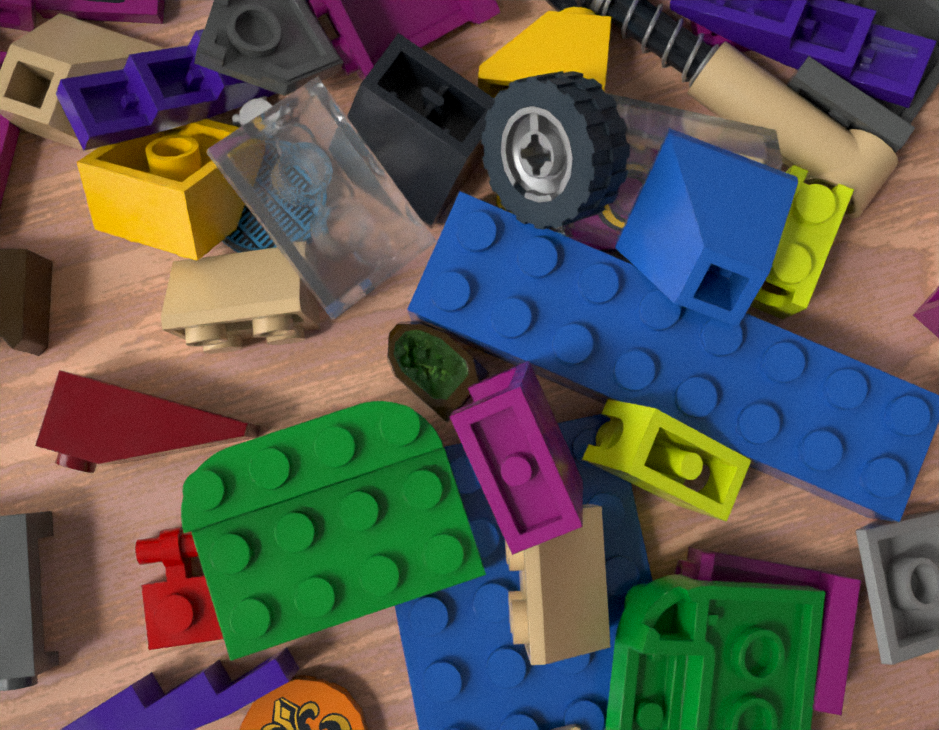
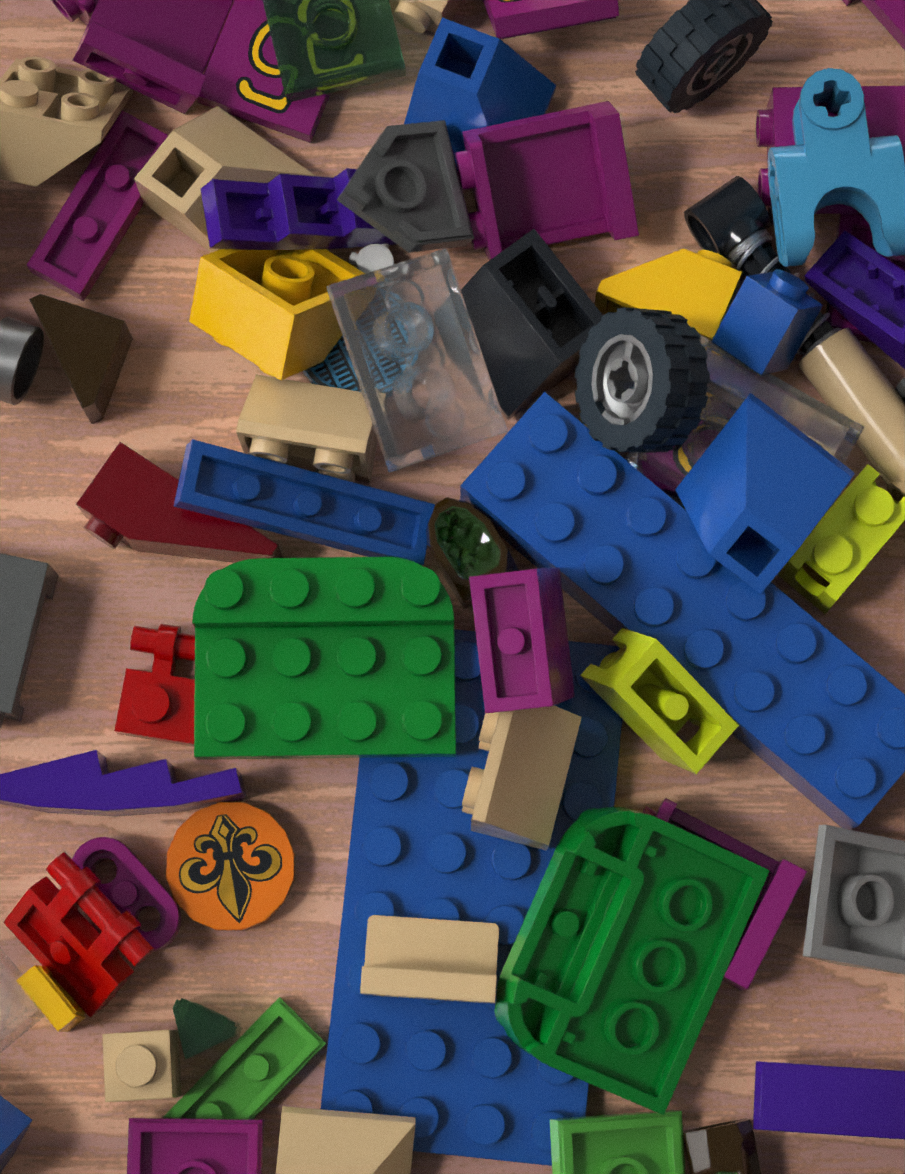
camera: 20 degrees right, 5 degrees down
(255, 375) = (301, 503): none -> blue plate
(652, 55) = (768, 321): none -> blue brick

